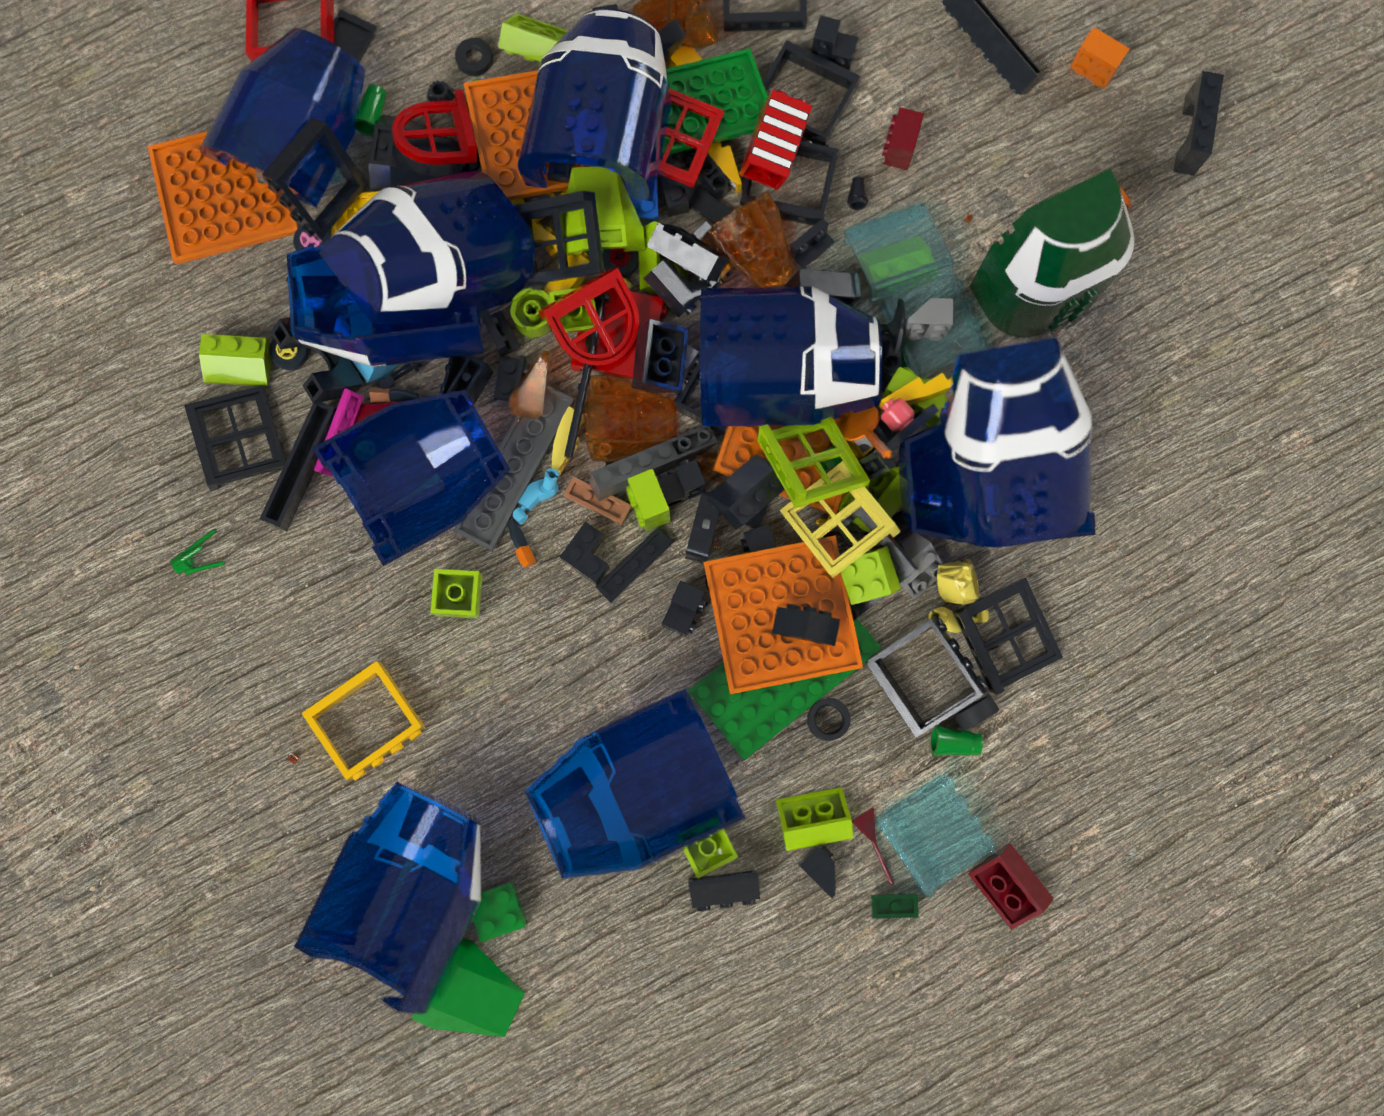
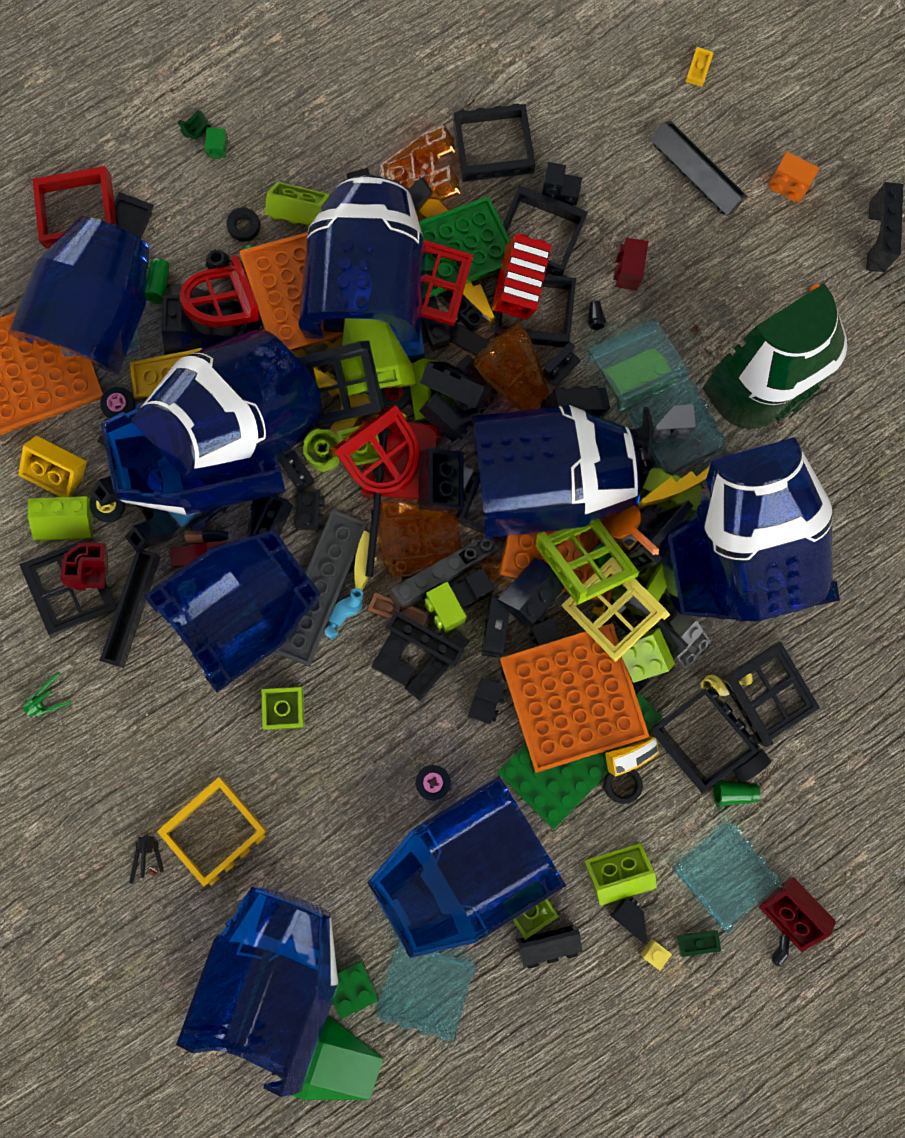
camera: 15 degrees left, 0 degrees up
(231, 303) = (51, 467): none -> yellow slope
(255, 414) = (85, 566): none -> dark red brick
(286, 728) = (144, 846): none -> black plant
(290, 157) = (96, 333): black window -> none
(343, 419) = (163, 566): dark pink tile -> none
(523, 551) = (338, 664): piece -> none
(530, 393) = (328, 524): clear orange slope -> none
(580, 925) = (426, 992): none -> clear light blue panel
(621, 698) = (433, 776): none -> black wheel
(622, 533) = (424, 639): none -> black brick
(806, 624) = (597, 706): black brick -> none
(841, 686) = (631, 755): none -> slope
(843, 912) = (655, 954): none -> light yellow brick
(866, 824) = (666, 874): dark red piece -> none
(897, 414) = (657, 512): coral head -> none
(958, 582) = (722, 652): light yellow piece -> none
(988, 926) = (782, 952): none -> black arm

